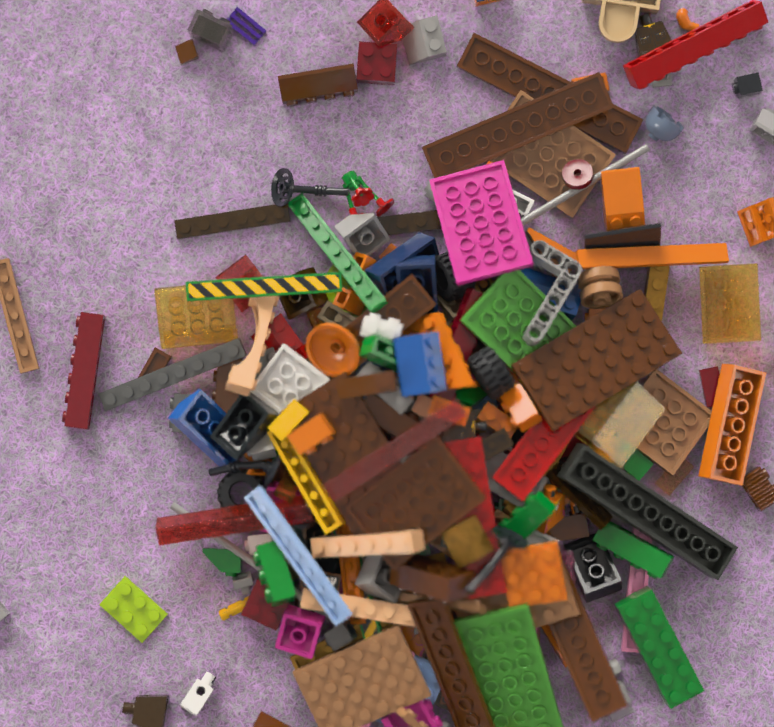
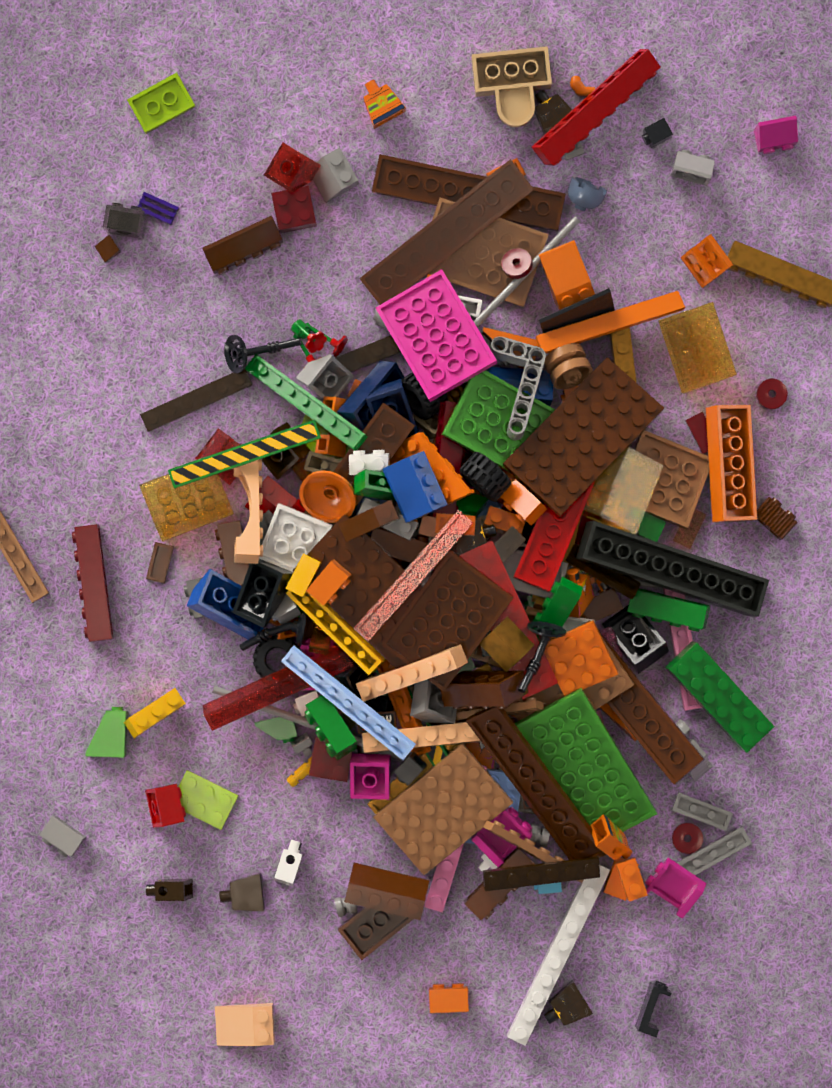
camera: 10 degrees left, 0 degrees up
(61, 522) = (110, 735): none -> bright green slope
(84, 689) = (176, 889): none -> dark brown torso
(94, 605) = (165, 805): none -> red slope
(108, 512) = (154, 713): none -> yellow brick
(172, 374) = (179, 563): dark grey plate -> none

